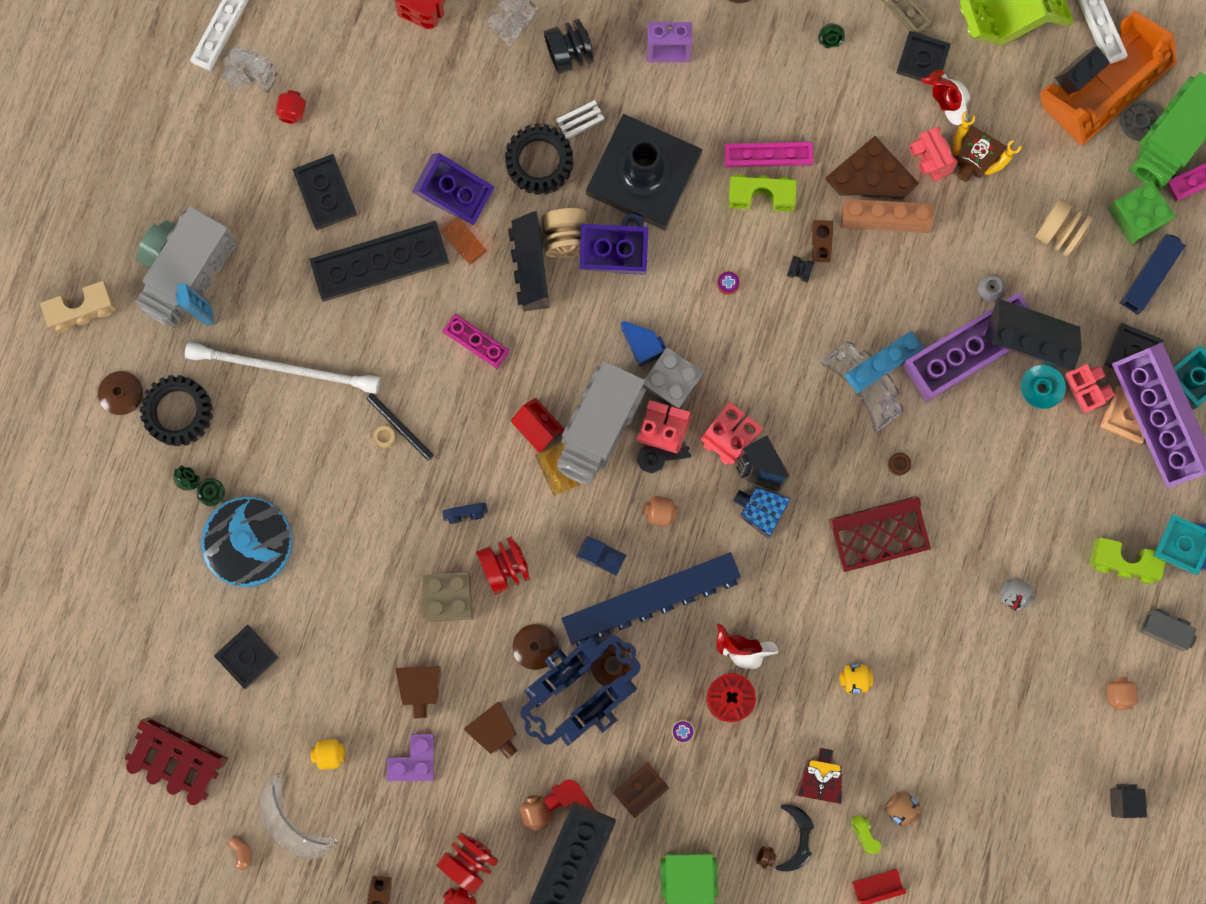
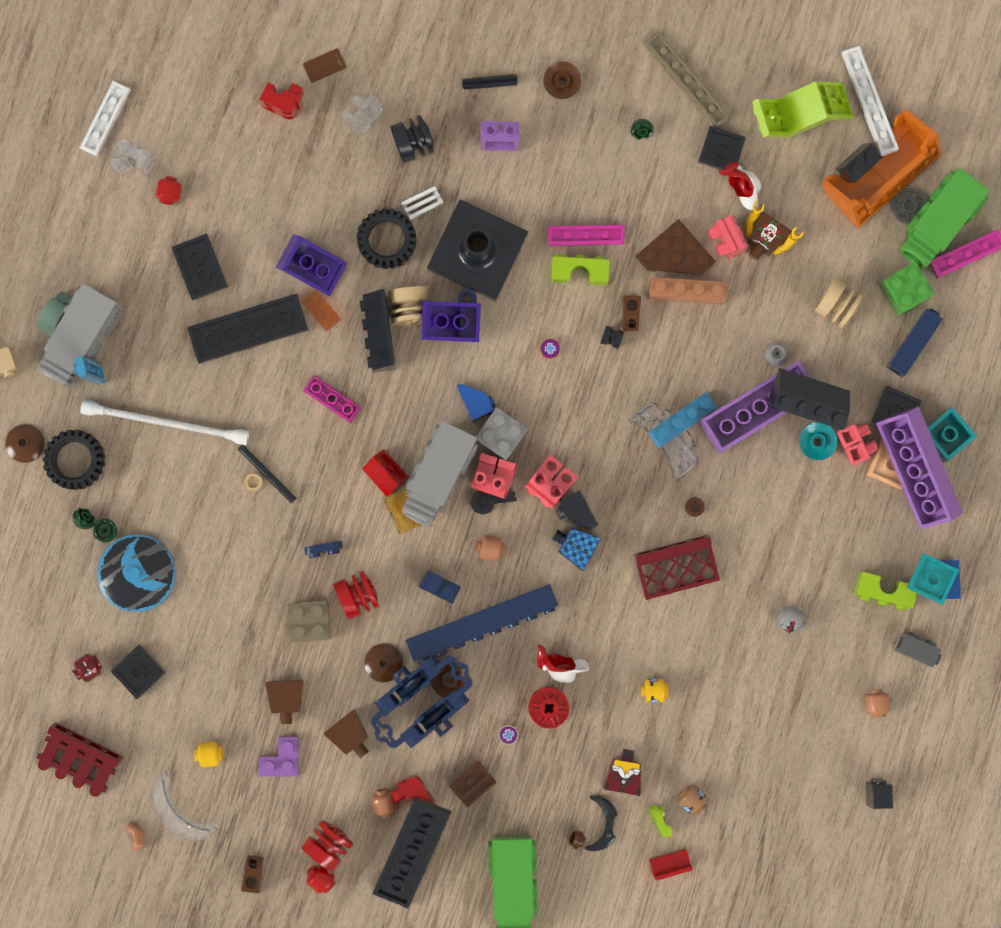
camera: 10 degrees left, 5 degrees up
(186, 652) = (87, 668): none -> dark red head

